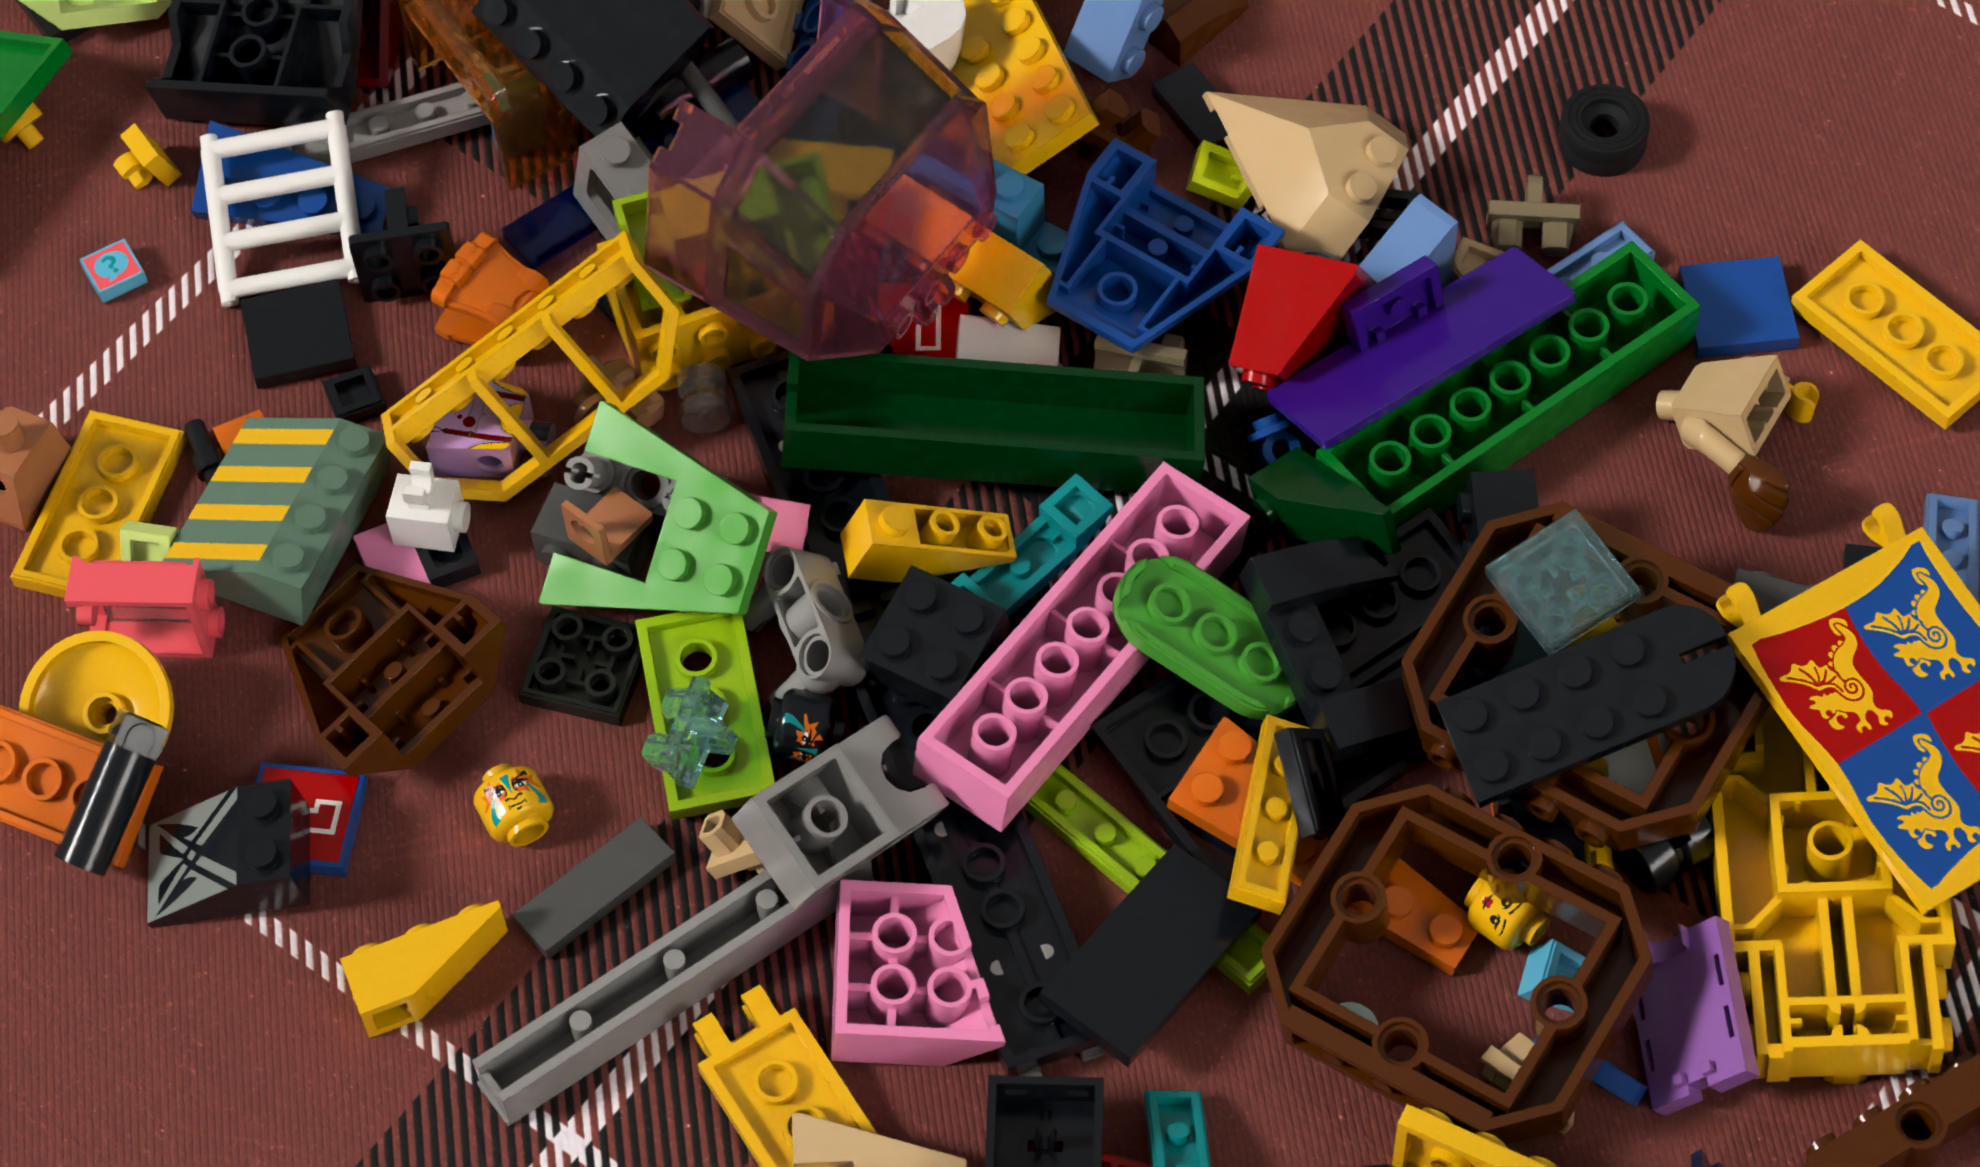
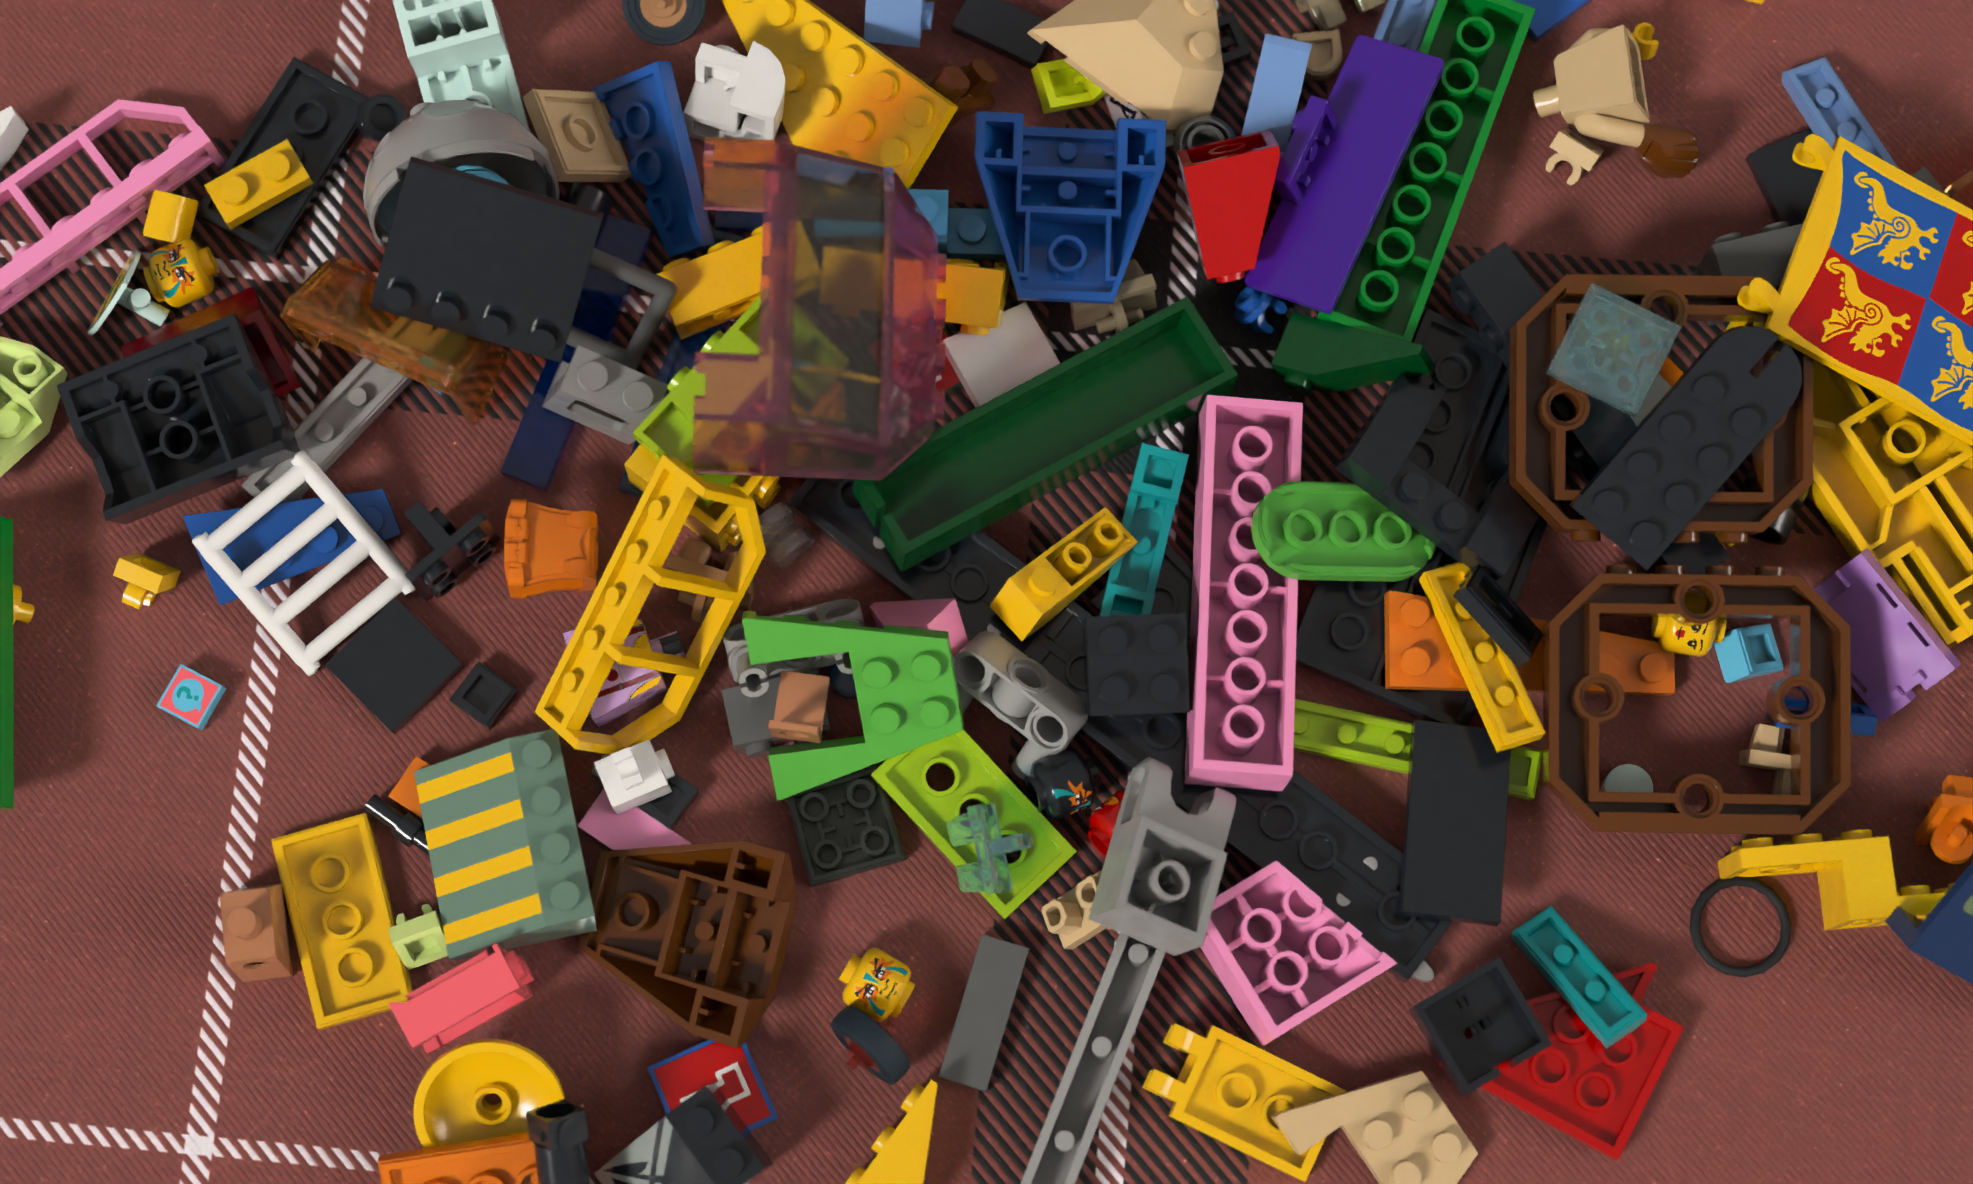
camera: 35 degrees left, 20 degrees up
(467, 844) = (870, 1044): none -> black wheel
(1671, 458) = (1576, 150): none -> tan tile

